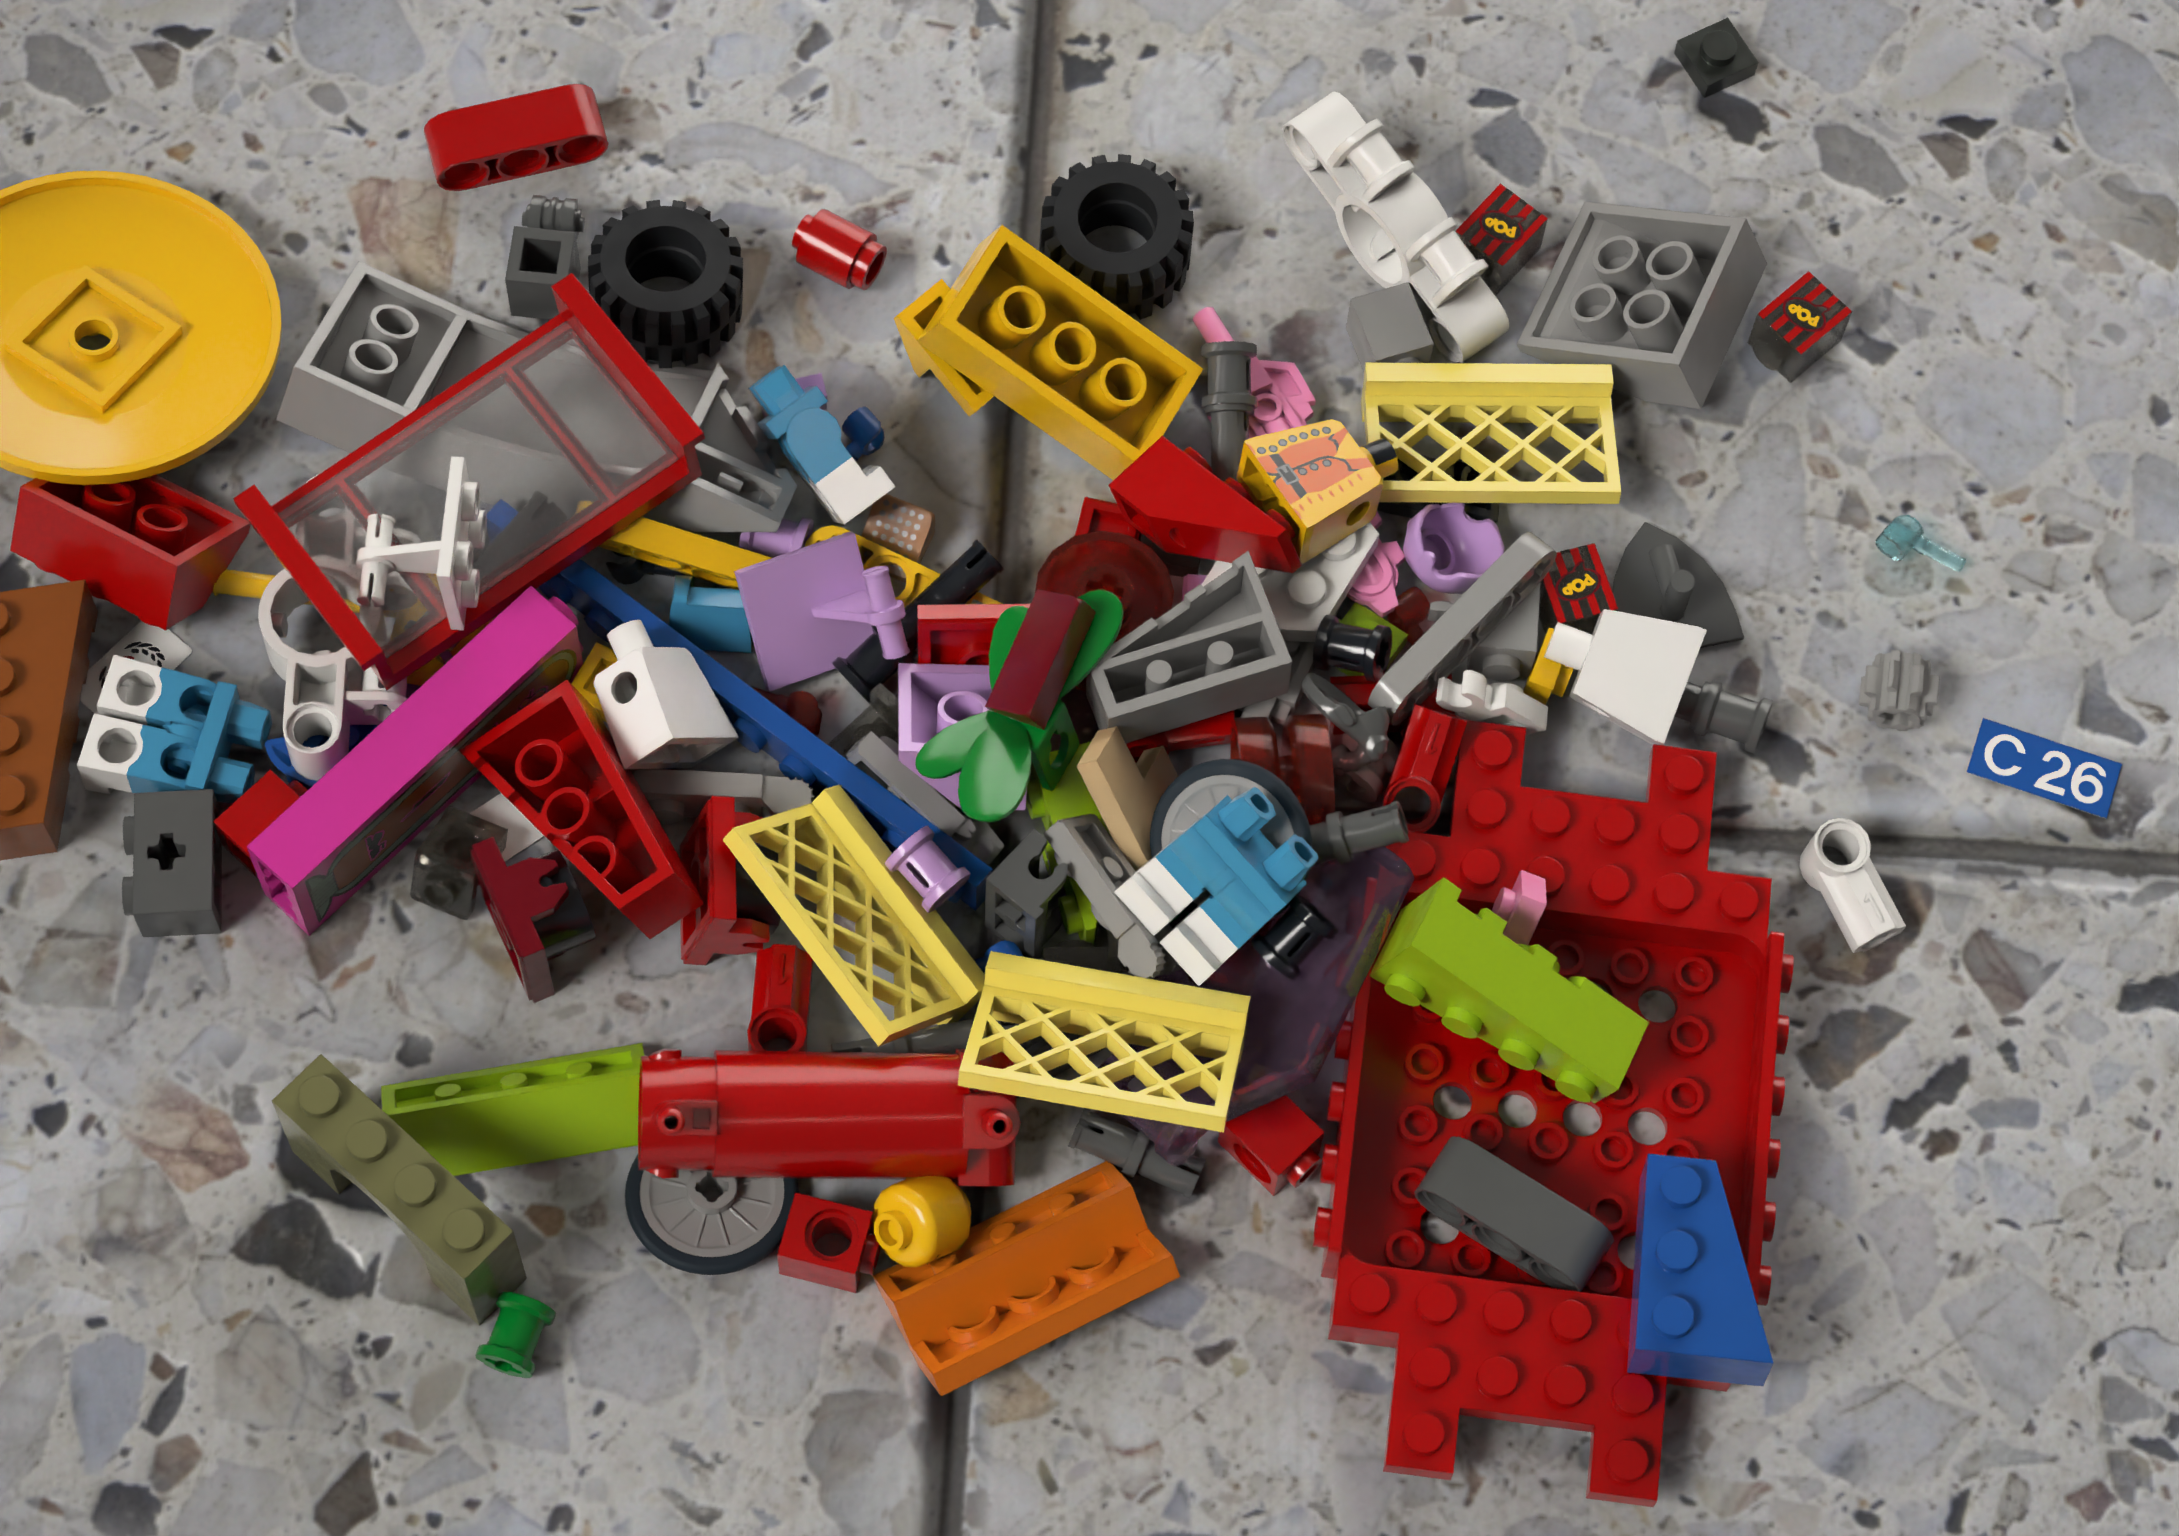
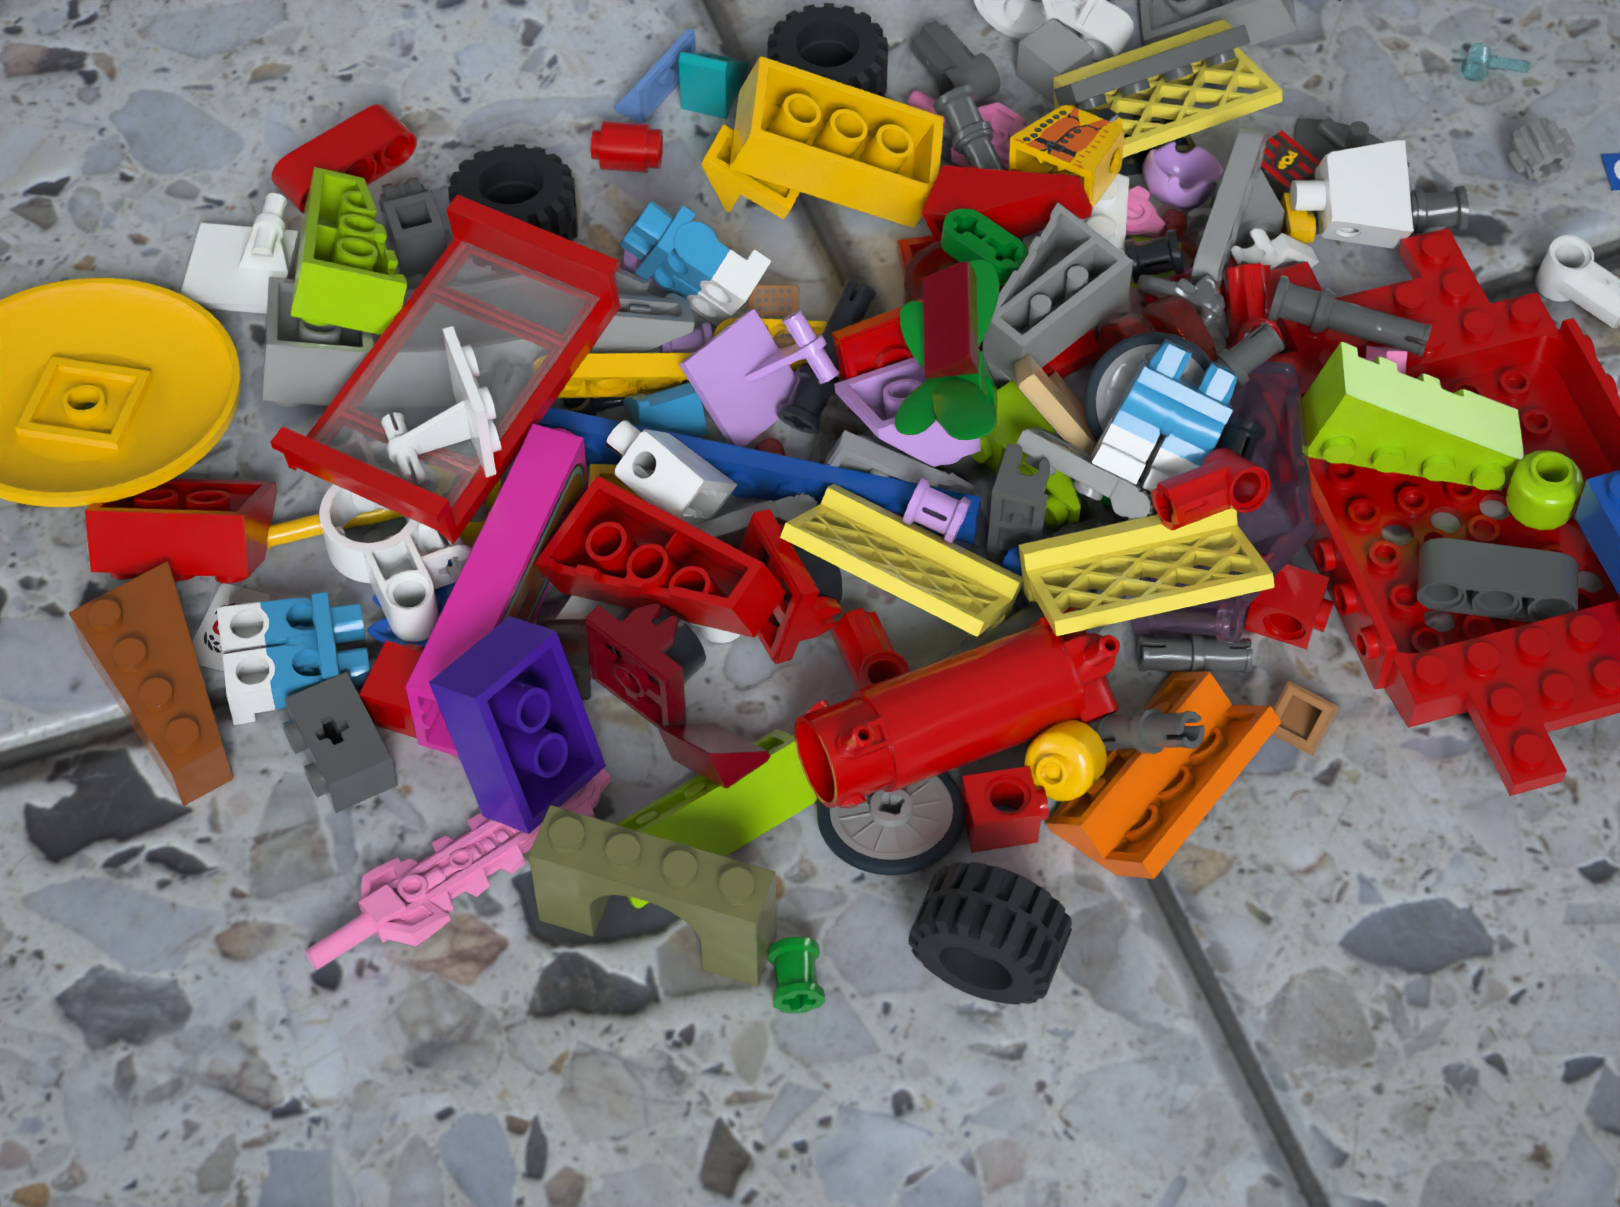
camera: 20 degrees left, 10 degrees down
(167, 1069) = (414, 899): none -> bright pink bar
(340, 221) = (235, 262): none -> white plate
(346, 937) = (518, 723): none -> dark purple brick
(433, 286) = (343, 260): none -> lime wedge
(555, 1045) = (713, 752): none -> dark red slope
(724, 1386) = (990, 933): none -> black tyre
(923, 171) = (657, 81): none -> medium blue slope
(980, 194) = (710, 82): none -> teal slope
(1019, 1230) = (1151, 731): none -> dark grey pin
(1159, 559) = (973, 236): none -> green beam
(1219, 1275) = (1303, 718): none -> medium nougat slope
(1243, 981) = (1217, 485): none -> red piece
(1271, 307) = (953, 62): none -> dark grey piece
(1493, 808) = (1323, 311): none -> dark grey pin
(1507, 403) = (1172, 63): none -> dark grey plate
(1624, 1128) = (1544, 490): none -> lime head

